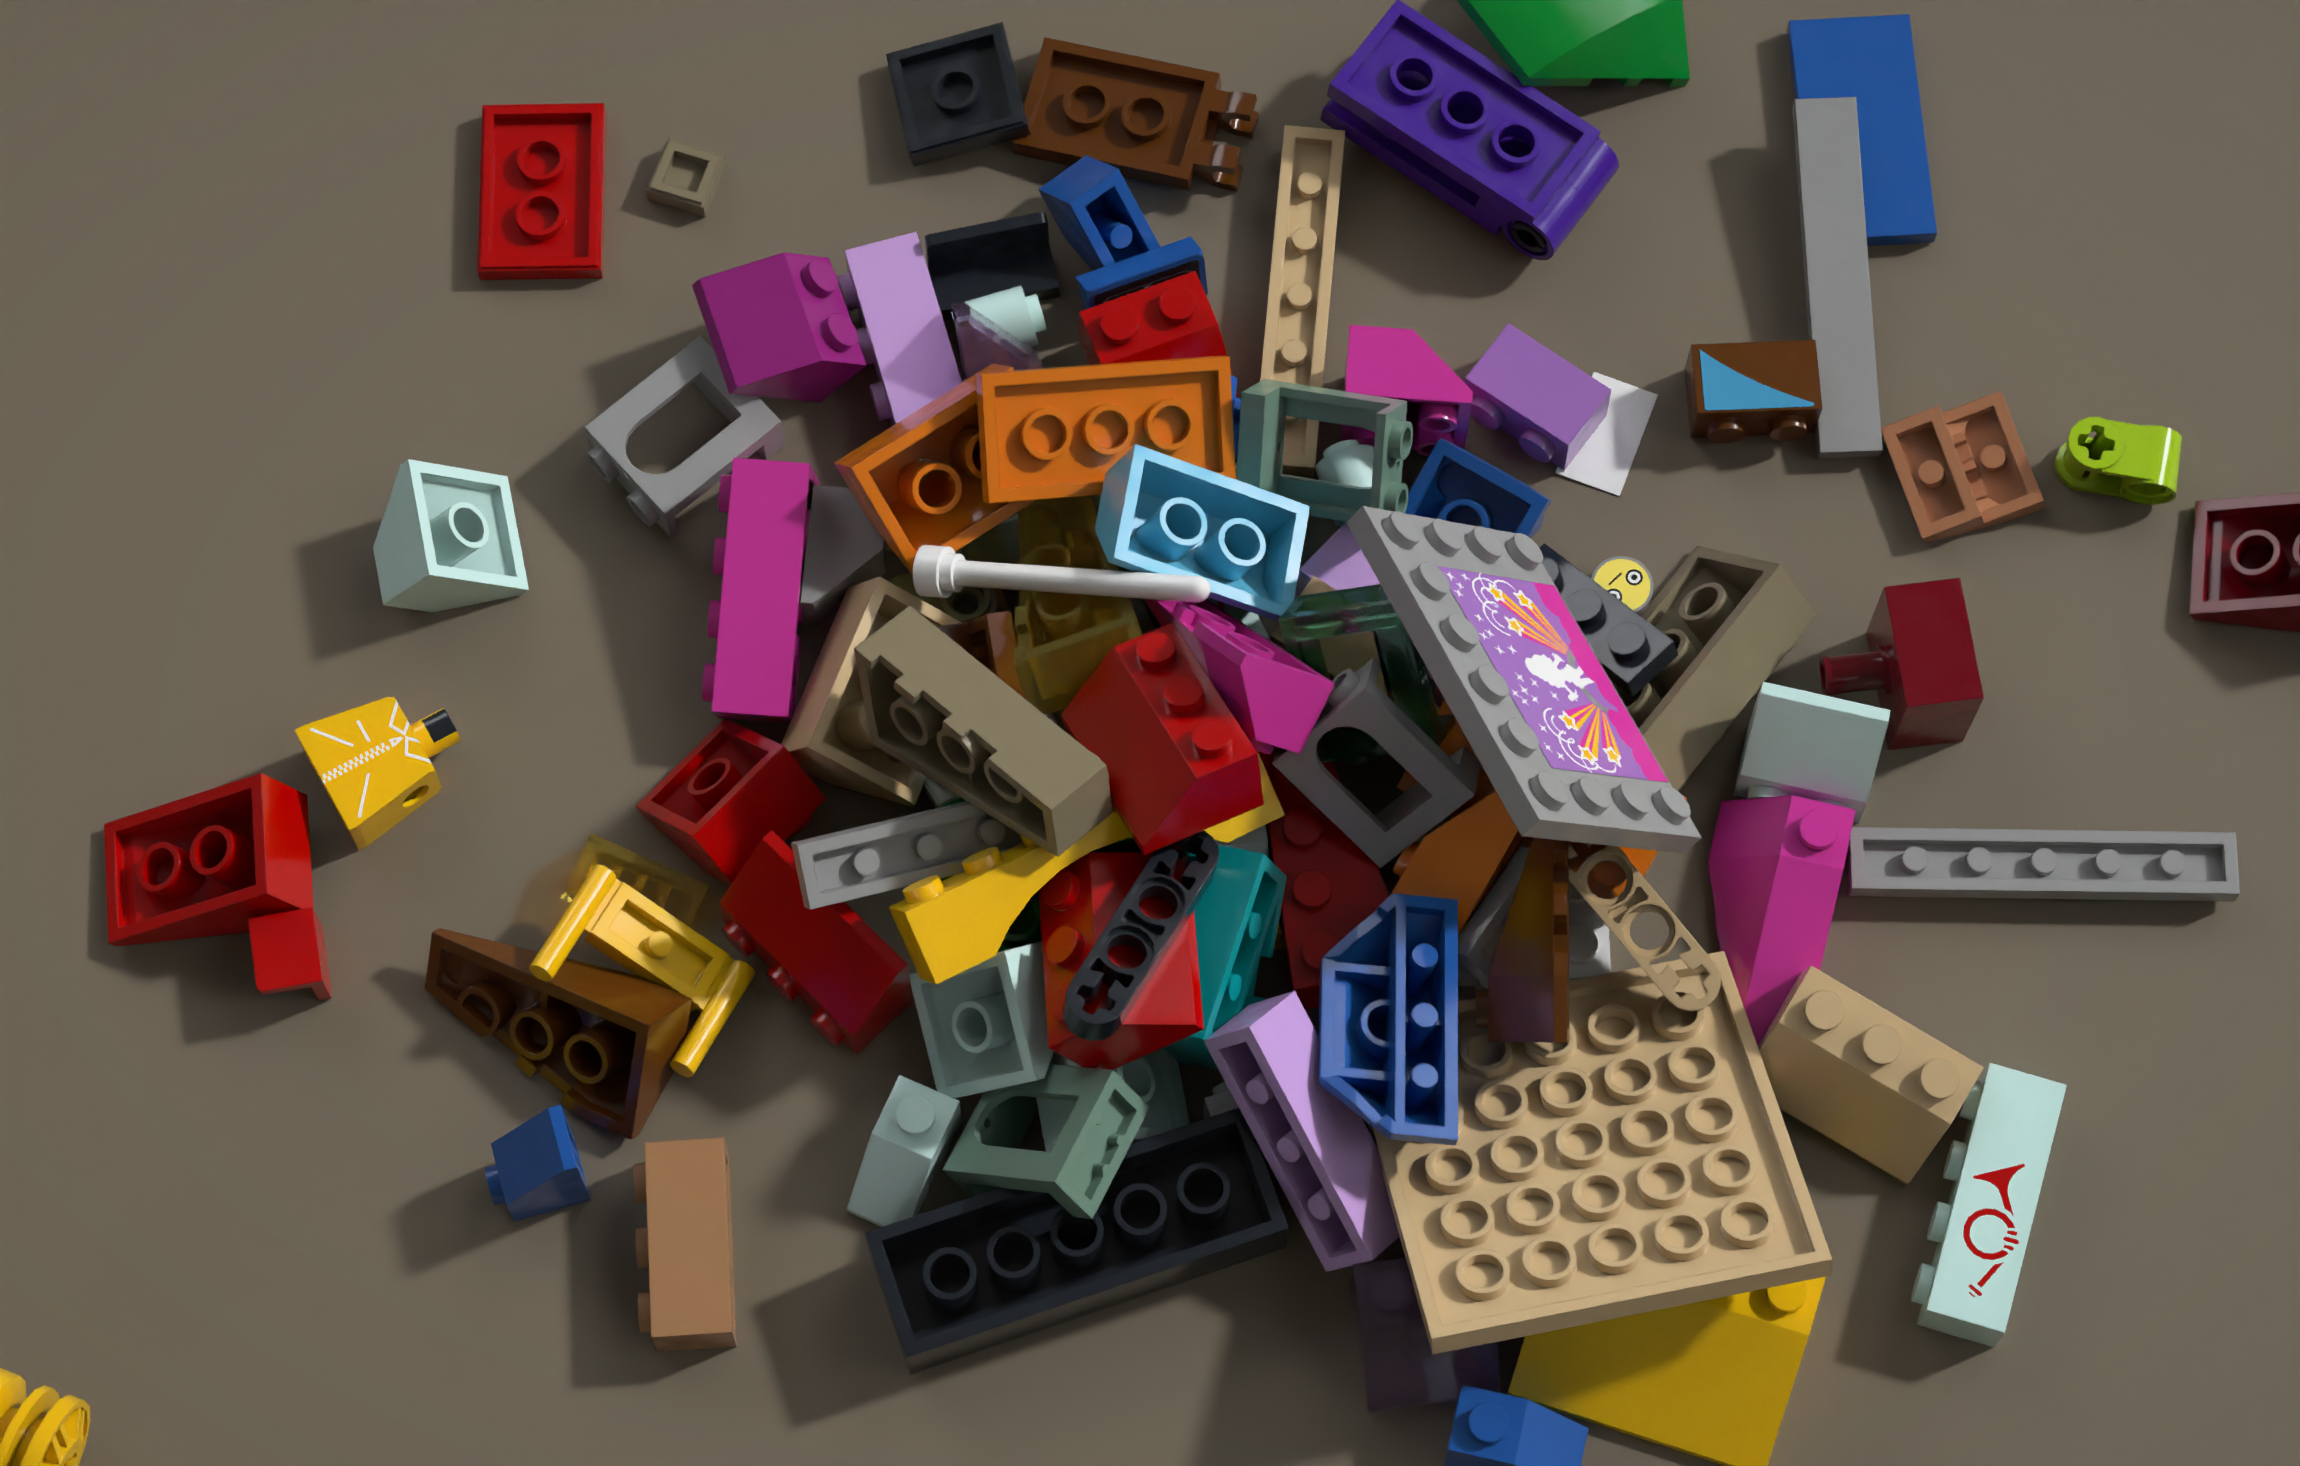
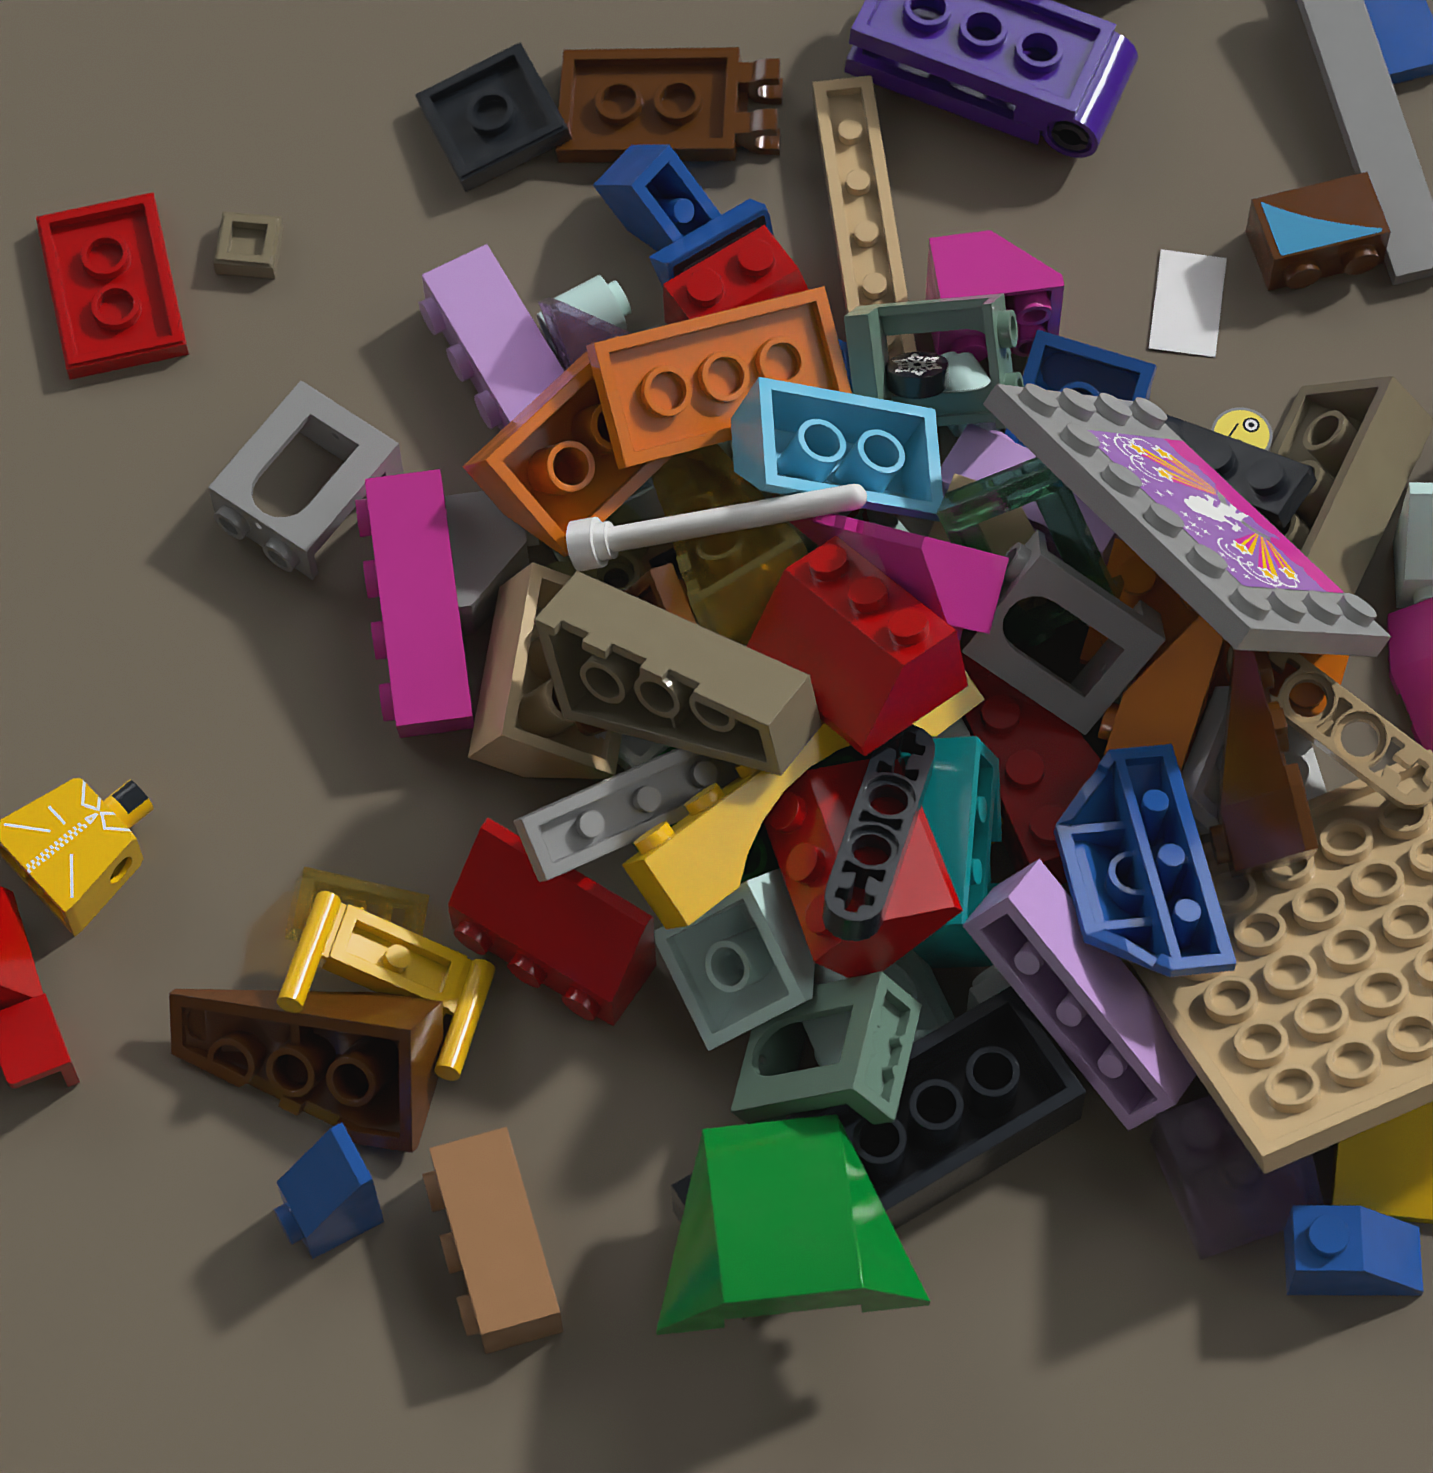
camera: 10 degrees left, 5 degrees down
(448, 539) = (96, 622): light aqua slope -> none
(731, 797) = (432, 807): red slope -> none
(780, 327) = (378, 357): magenta slope -> none
(904, 1153) = (685, 1099): light aqua slope -> none
(961, 1301) = (782, 1226): none -> green wedge
(990, 259) = (564, 256): black panel -> none
(1308, 460) = (917, 375): none -> black tile
(1536, 397) = (1118, 279): medium lavender brick -> none

